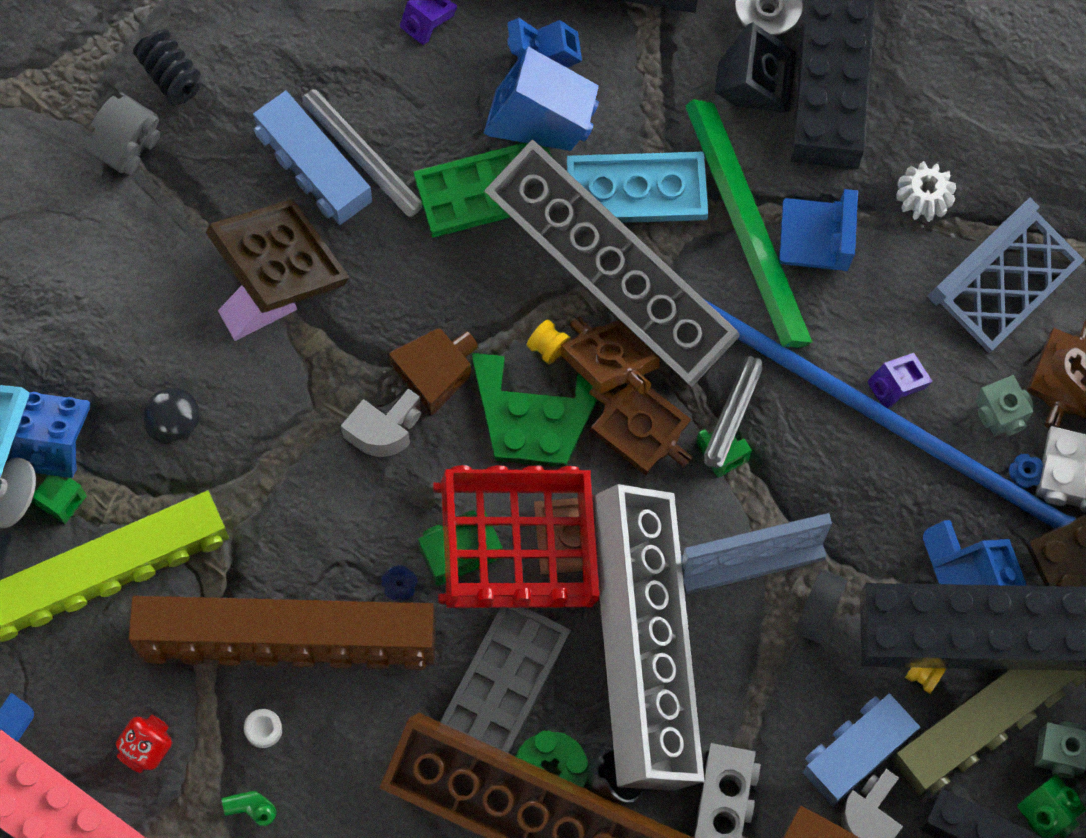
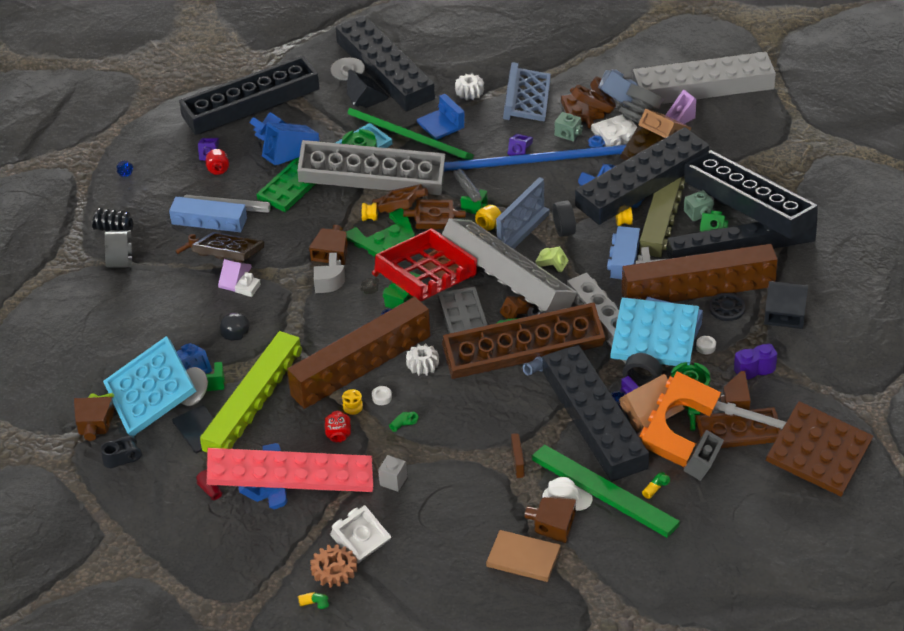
camera: 35 degrees left, 25 degrees down
(201, 704) = (352, 402): none -> yellow wheel
(249, 199) = (191, 239): none -> reddish brown hand
(256, 346) = (247, 285): none -> white tile
(361, 705) = (422, 359): none -> white gear
(412, 57) = (217, 162): none -> red head
(591, 720) = (513, 306): none -> reddish brown bracket
(638, 209) = (364, 136): none -> green plate
(714, 501) = (487, 217): none -> yellow head
(741, 666) = (552, 256): none -> yellowish green bracket

